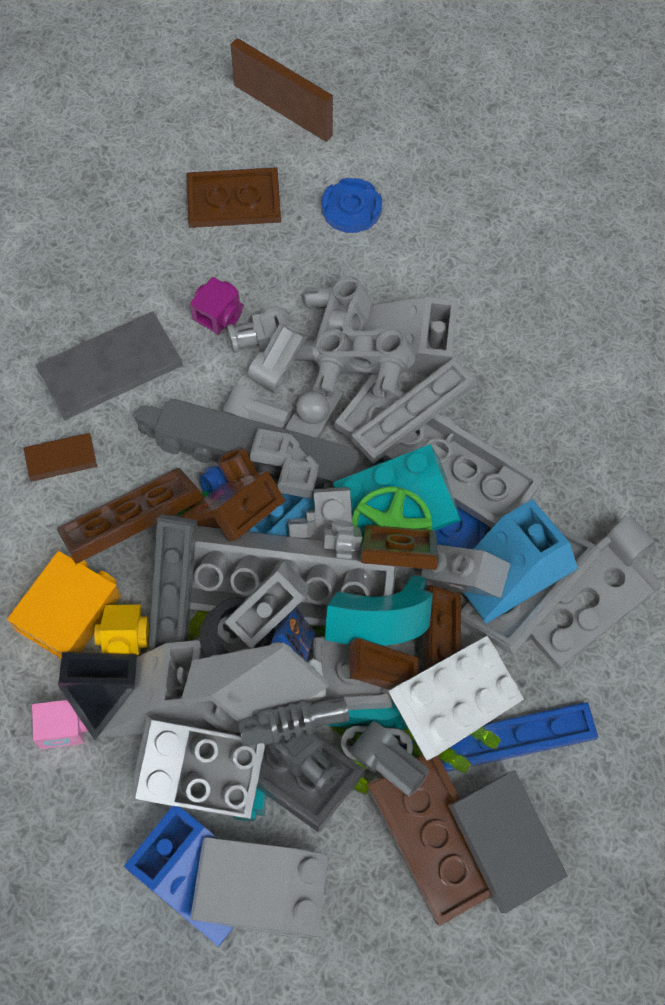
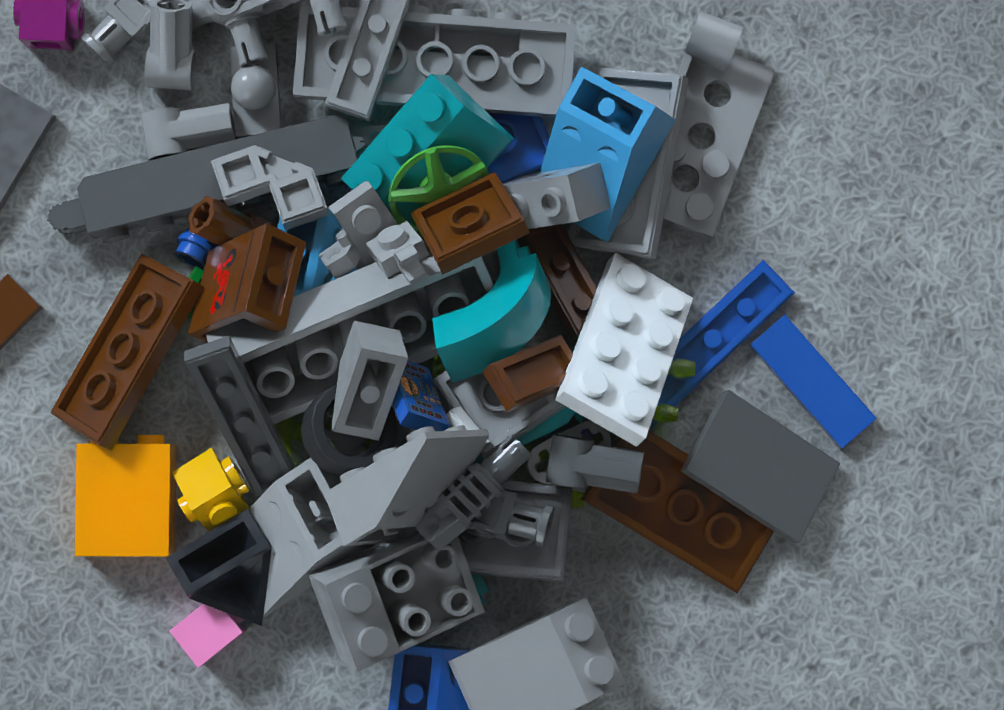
camera: 30 degrees left, 20 degrees up
(578, 807) = (812, 381): none -> blue tile

